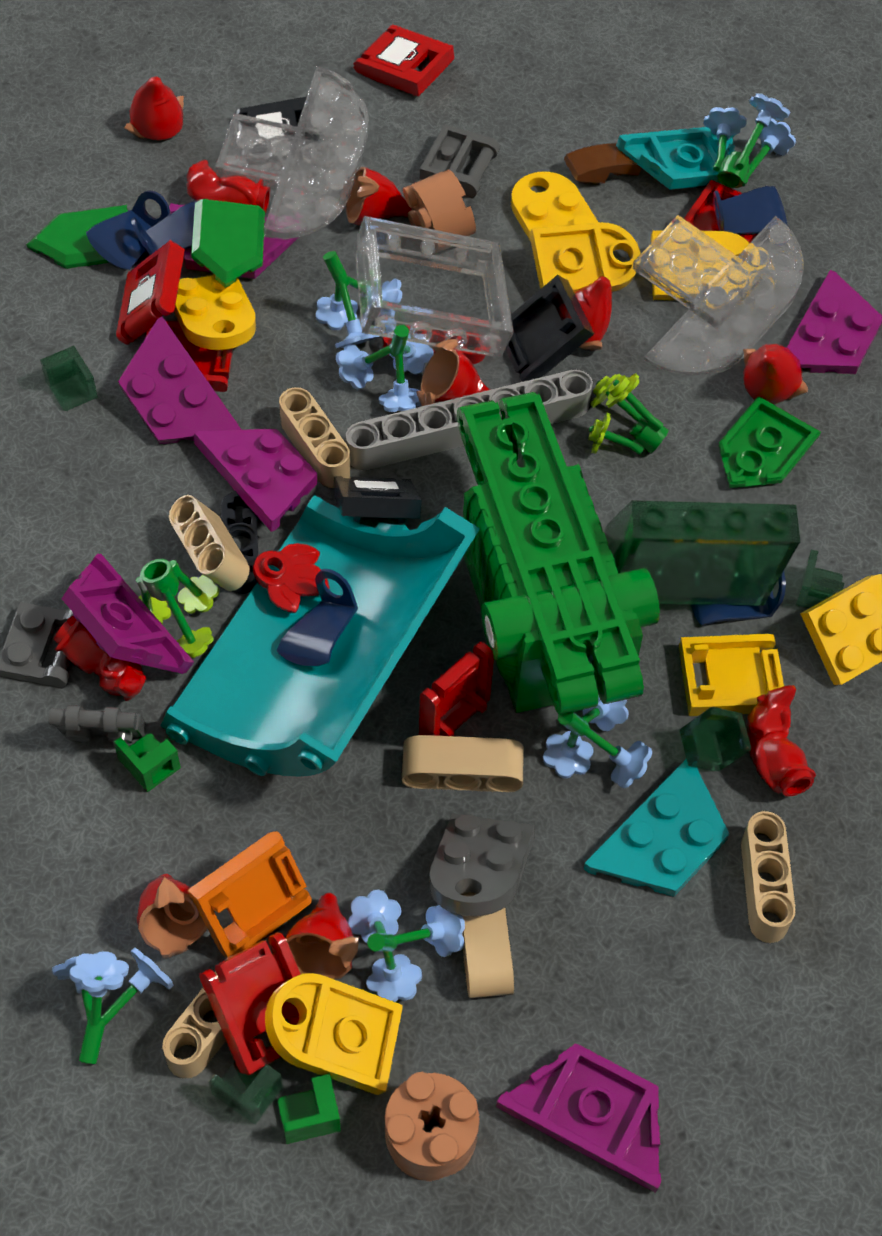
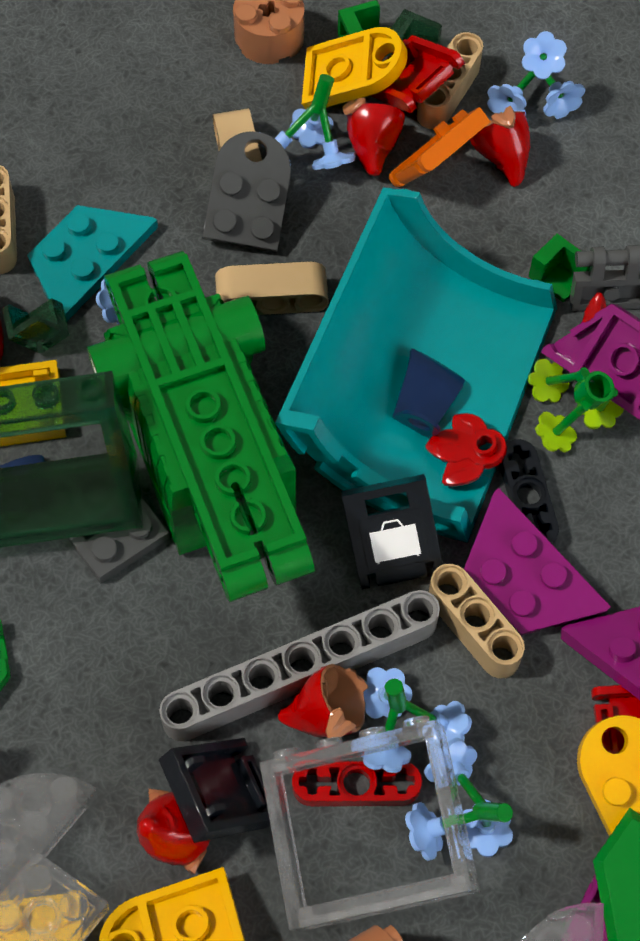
camera: 175 degrees right, 5 degrees up
(209, 543) = (558, 465): tan beam -> none
(457, 693) = (290, 317): red container -> none
(595, 1111) = (148, 50): magenta wing -> none
(647, 431) = (120, 674): plant -> none

